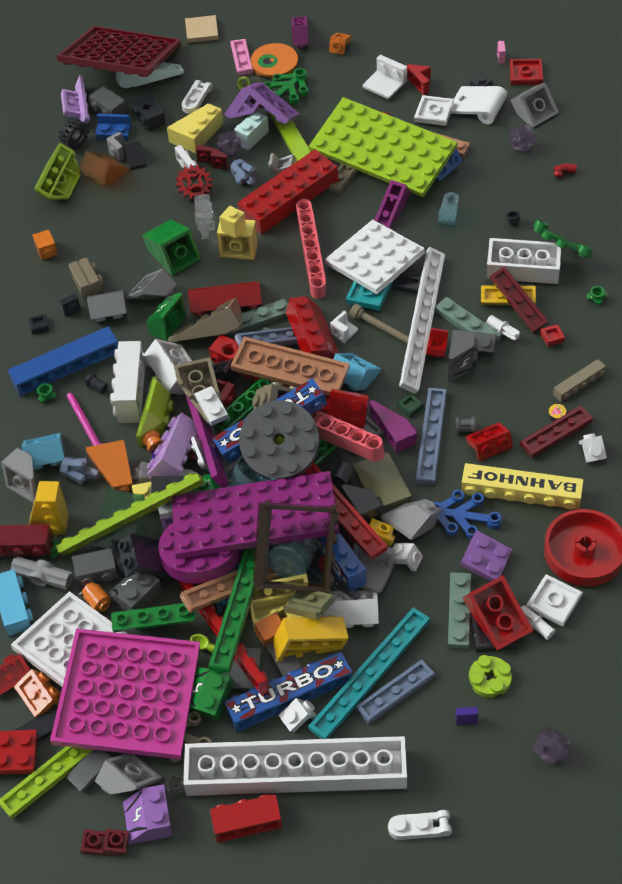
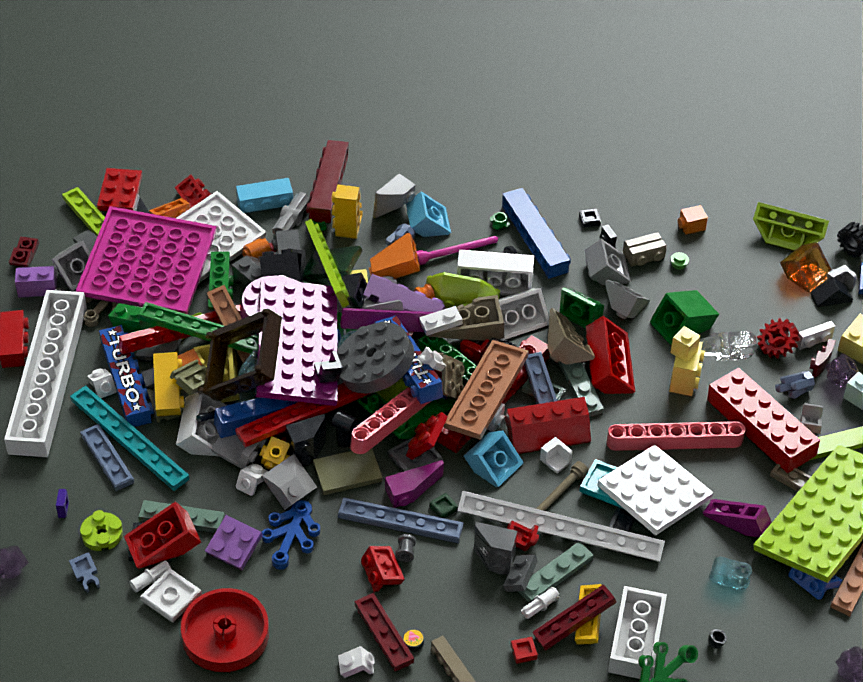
camera: 90 degrees right, 5 degrees down
(96, 255) = (679, 260): none -> plate
(281, 389) = (432, 358): none -> white plate
(298, 474) = (329, 370): none -> panel
(522, 486) = (314, 587): light yellow brick -> none
(542, 680) = (84, 569): none -> sand blue plate

